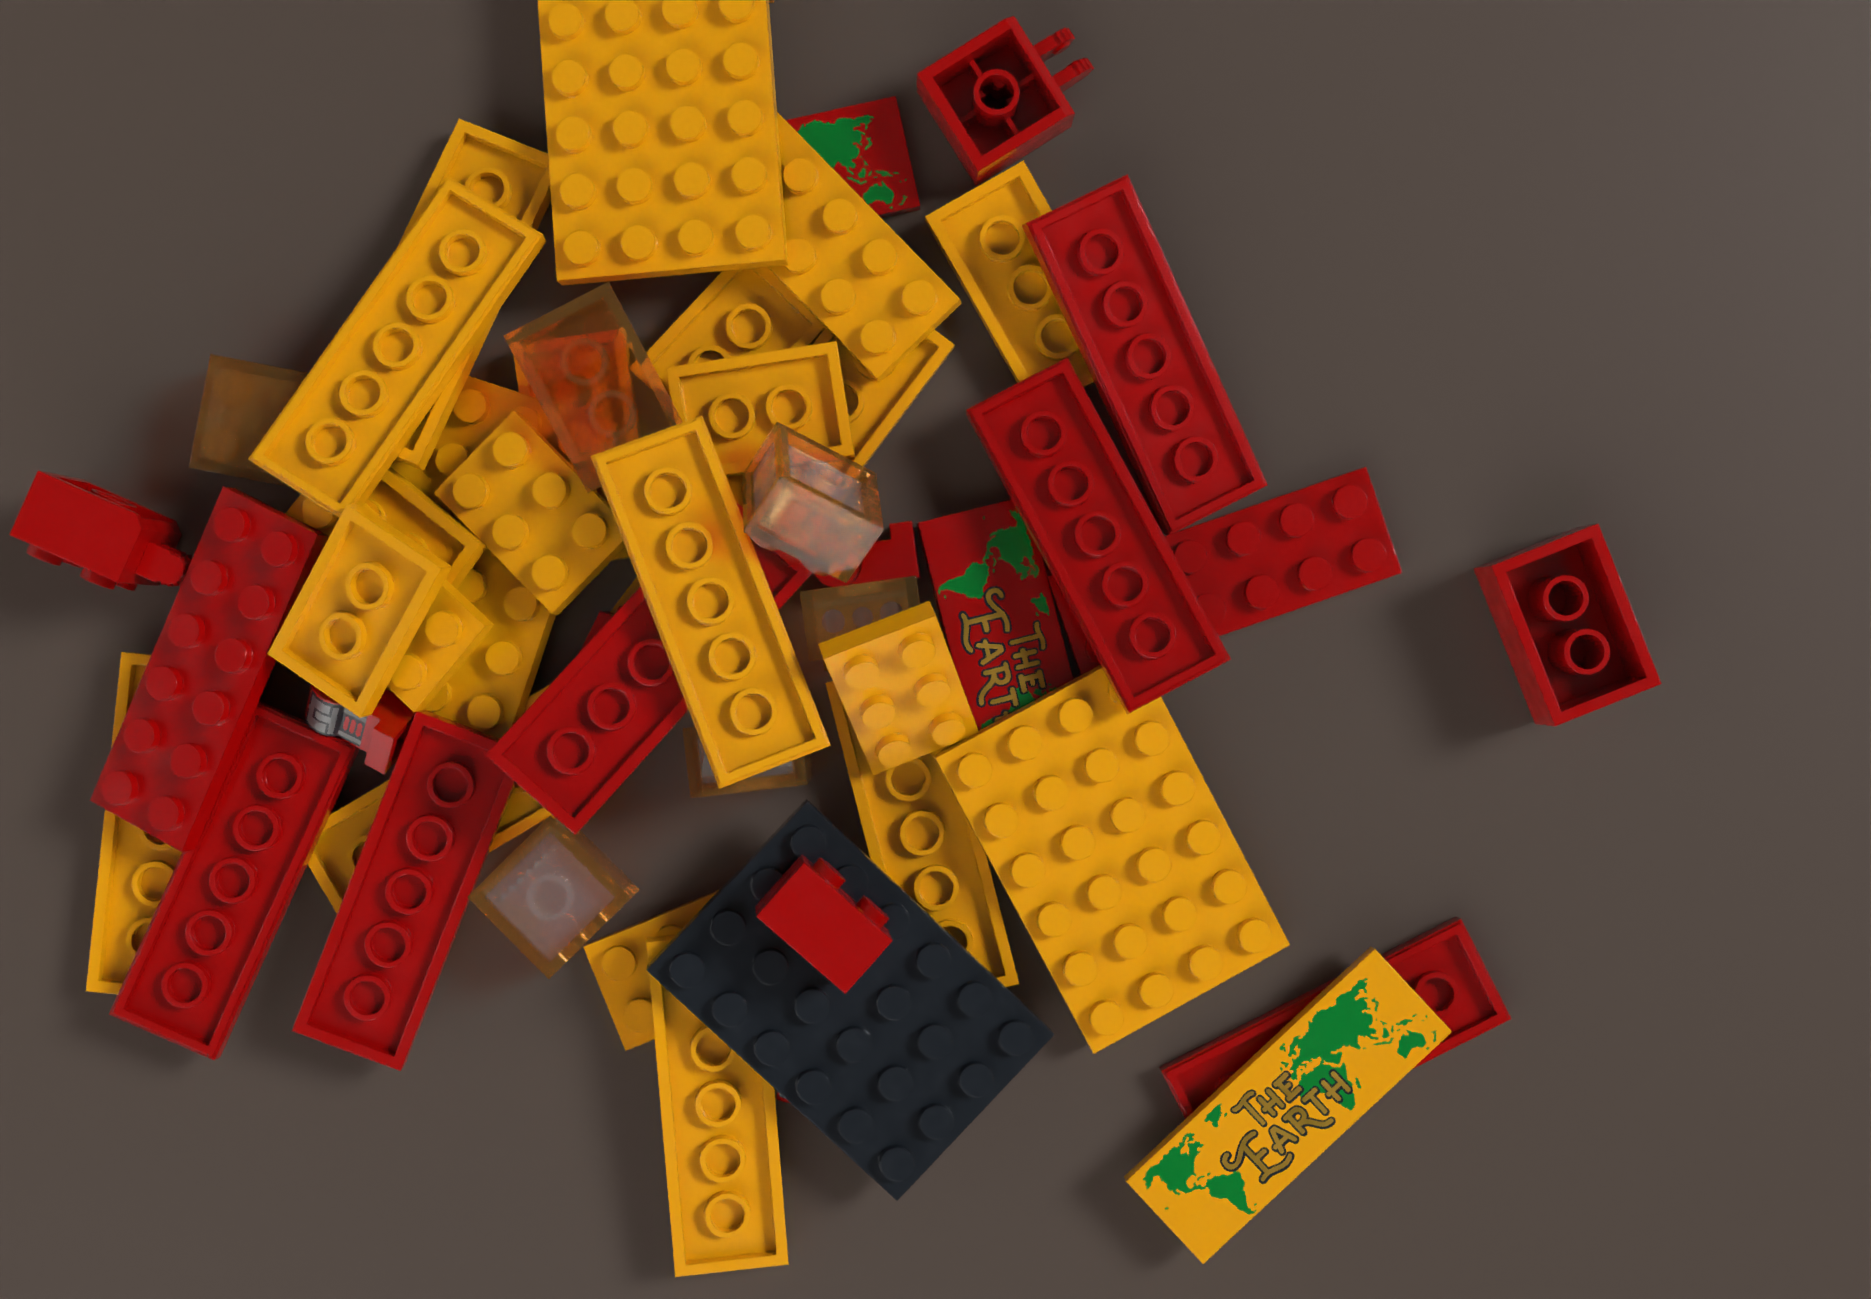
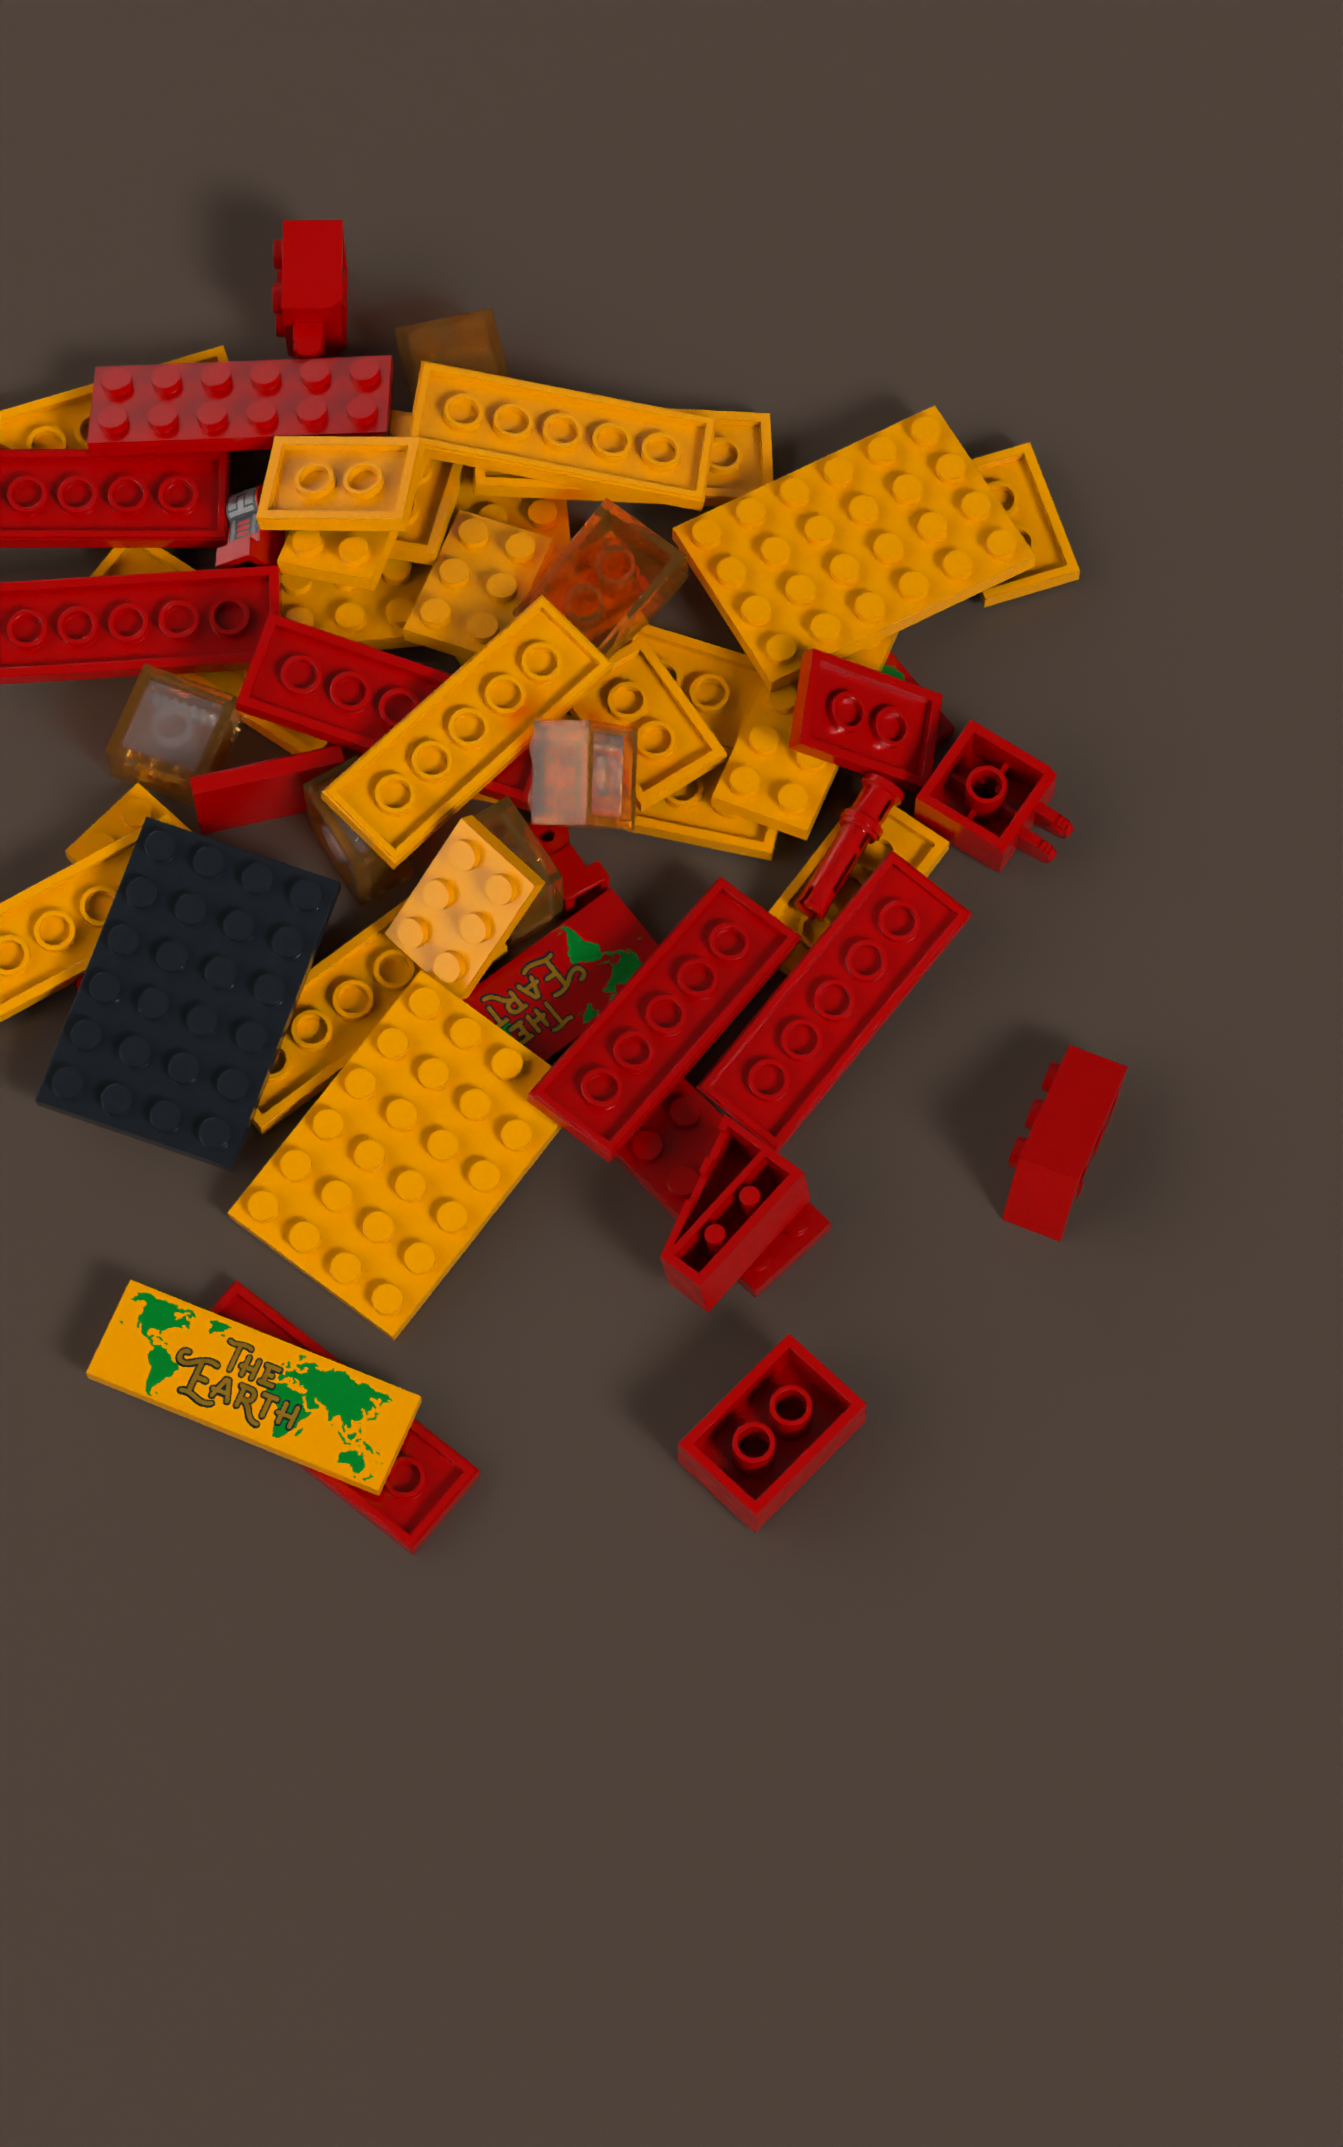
camera: 65 degrees right, 20 degrees down
(660, 828) = (259, 789): none -> red tile
(825, 922) = (248, 924): red brick -> none
(868, 183) = (865, 720): none -> red plate
(976, 243) = (858, 828): none -> red pin
(1343, 566) = (732, 1216): none -> red wedge
(1393, 195) = (1061, 1140): none -> red wedge

